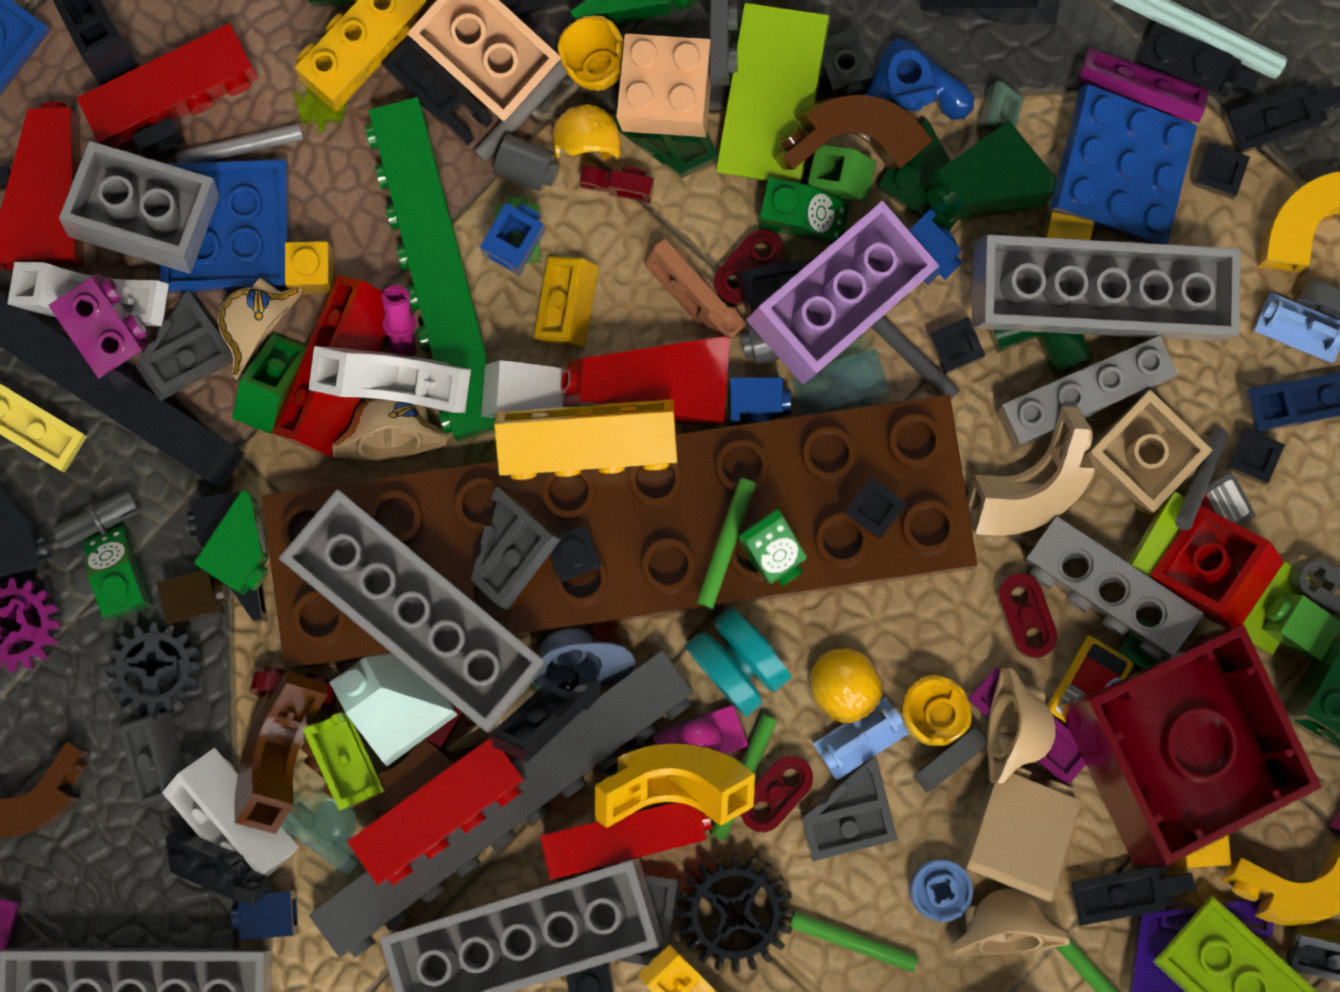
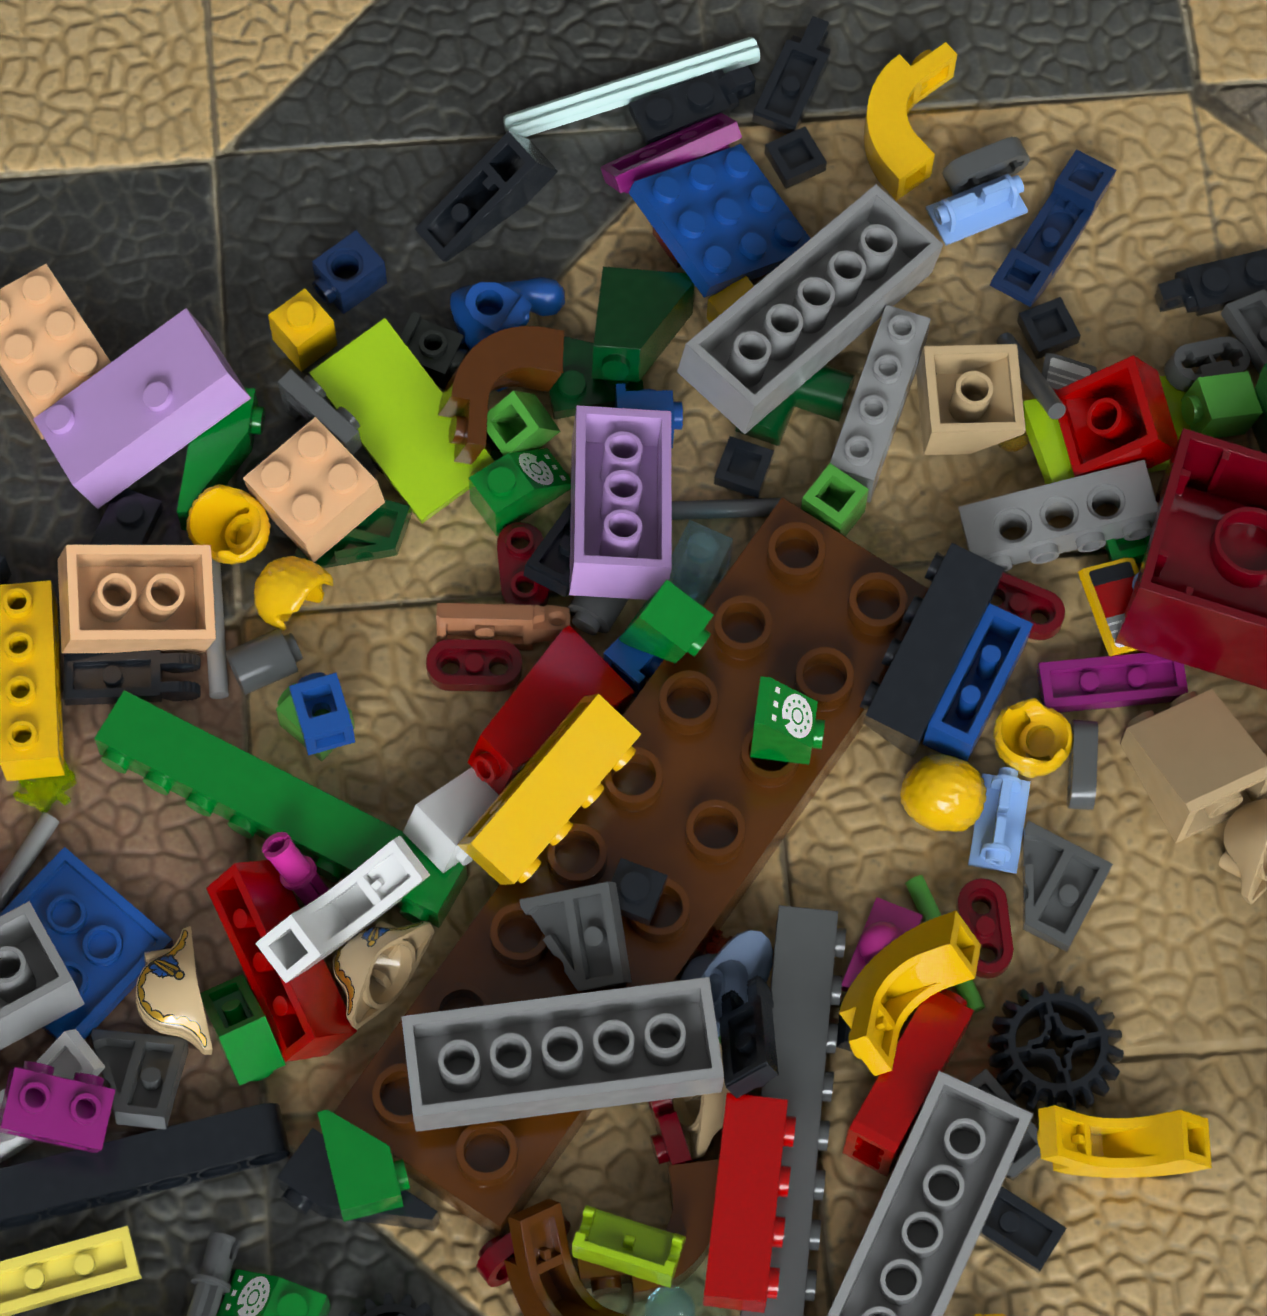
camera: 50 degrees left, 15 degrees down
(192, 597) = (359, 1260): dark brown brick -> none
(310, 266) = (176, 904): yellow brick -> none
(391, 704) = (616, 1163): light aqua slope -> none
(566, 301) = (407, 734): yellow slope -> none
(627, 184) = (358, 600): dark red plate -> none
(651, 300) = (474, 664): none -> dark red plate
(726, 543) = (742, 764): bright green bar -> none
(742, 658) = (846, 852): teal wheel -> none
(777, 408) = (668, 625): none -> green slope
(854, 941) = (1168, 977): bright green bar -> none
(875, 508) = (825, 622): black plate -> none
(928, 593) = (931, 648): none -> black slope
(940, 890) = (1185, 869): medium blue wheel -> none
(941, 640) = (977, 683): none -> blue brick
(981, 431) = (836, 500): none -> bright green brick
(999, 107) = (580, 272): sand green slope -> none
(1018, 727) = (1103, 683): tan hat -> none
(1041, 493) = (927, 494): tan arch -> none

